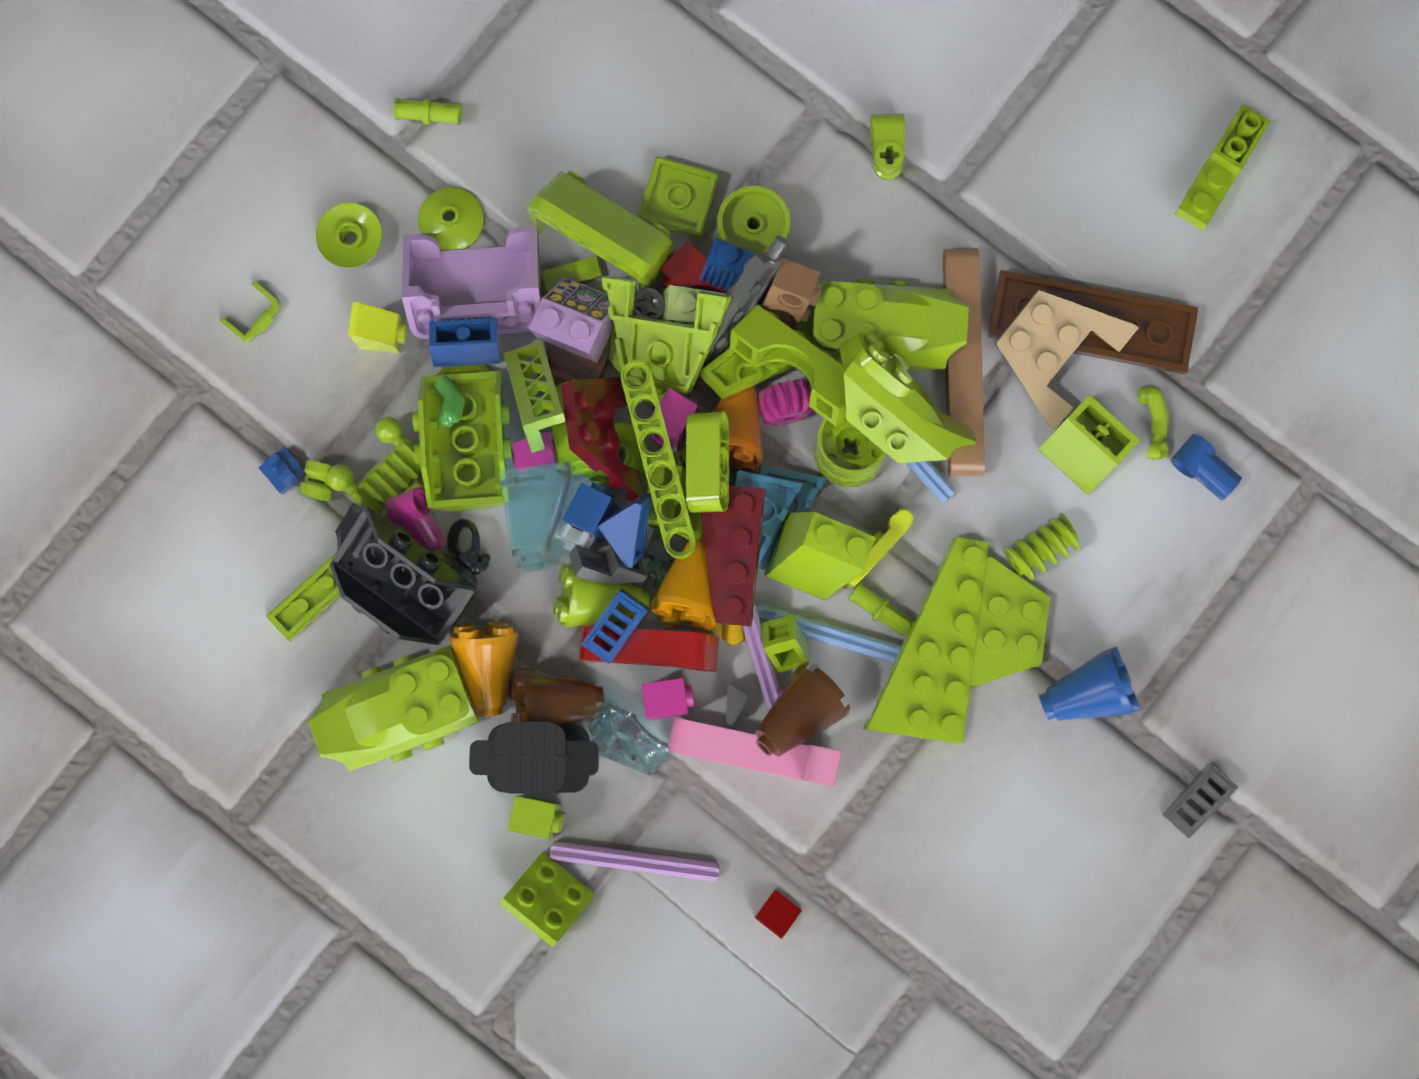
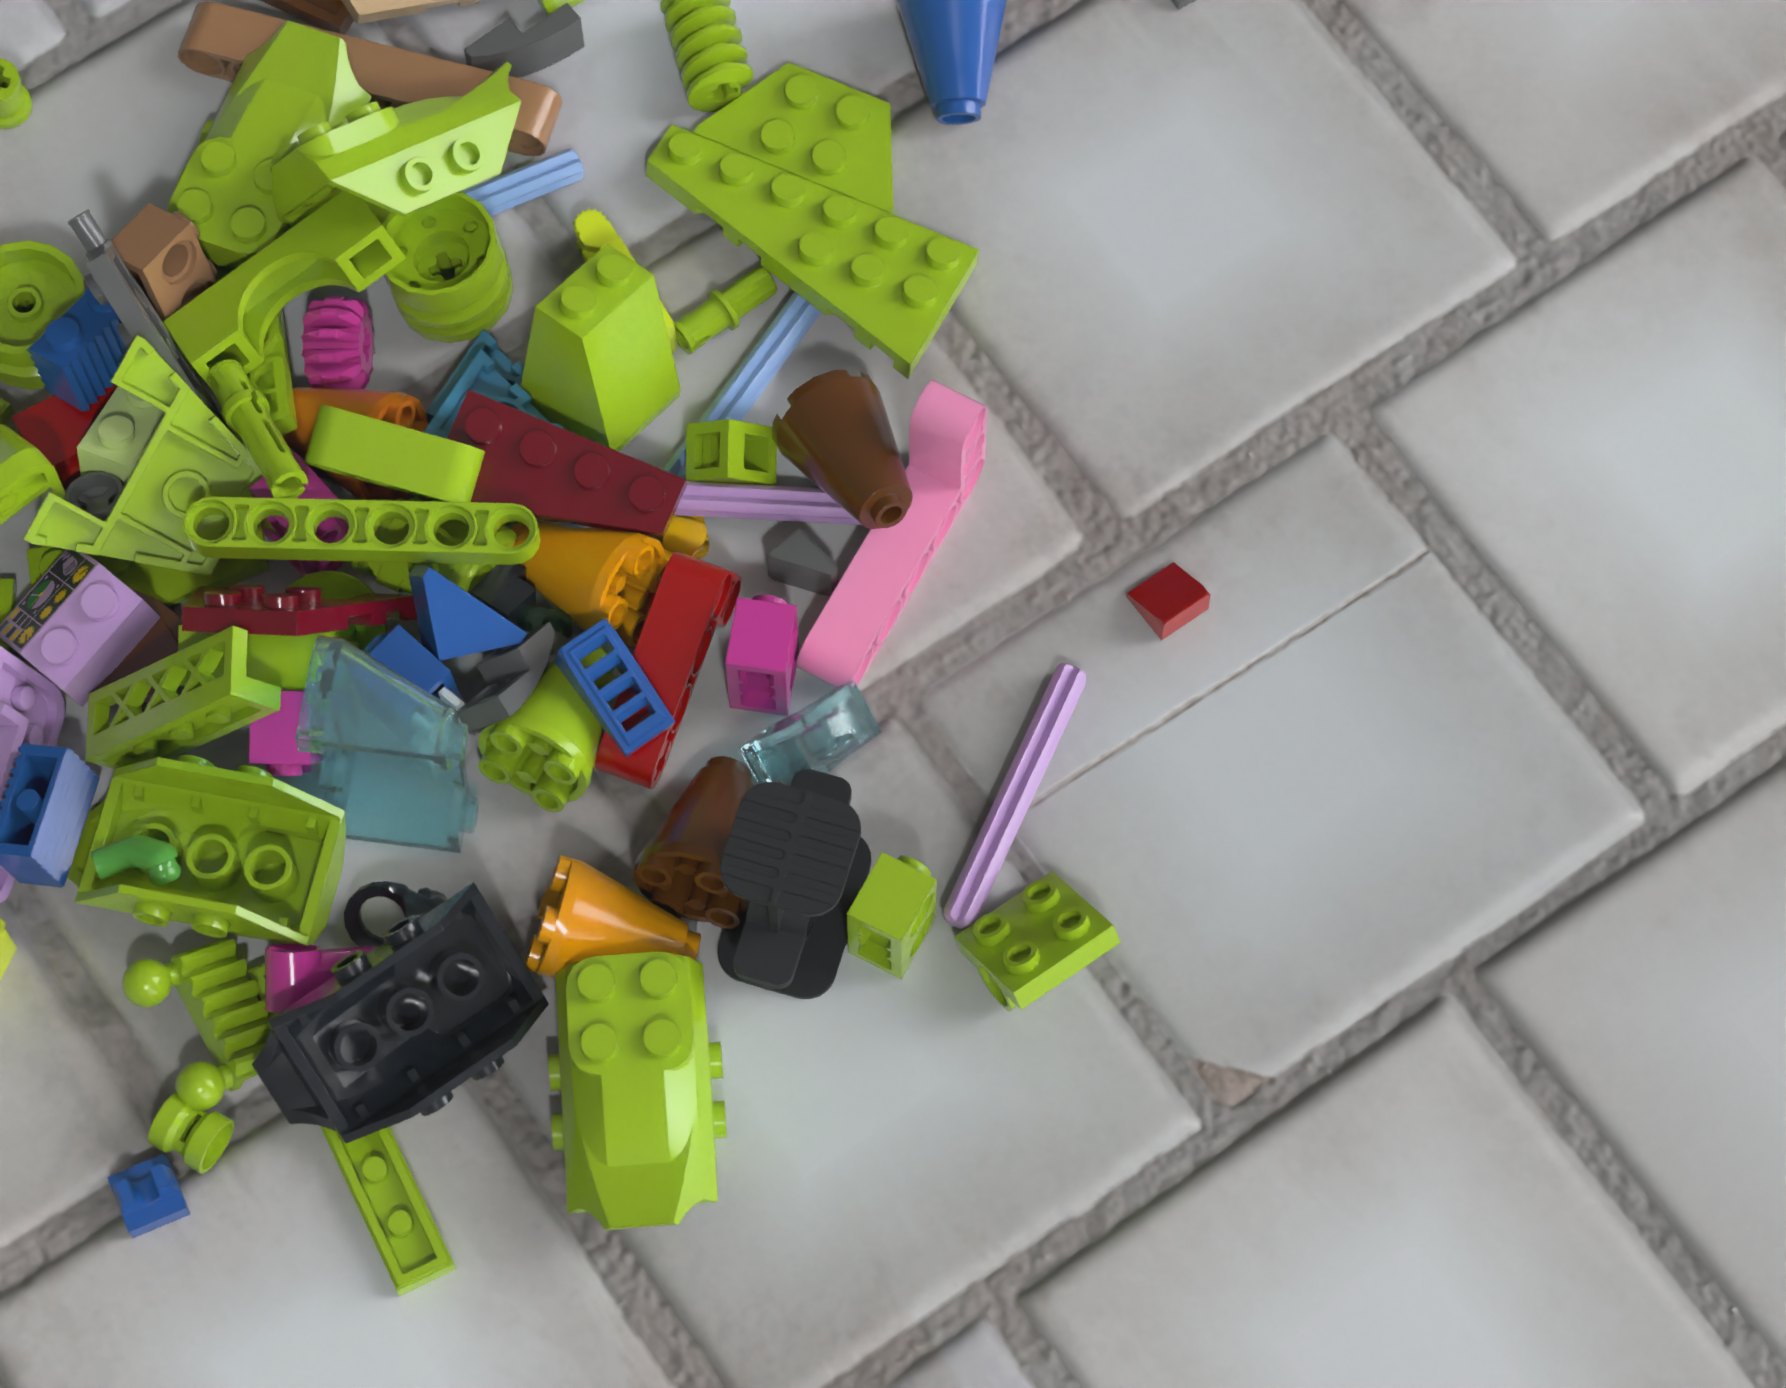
camera: 75 degrees left, 15 degrees down
(714, 370) = (248, 415): none -> lime pin
(1003, 434) = (532, 51): none -> dark grey slope

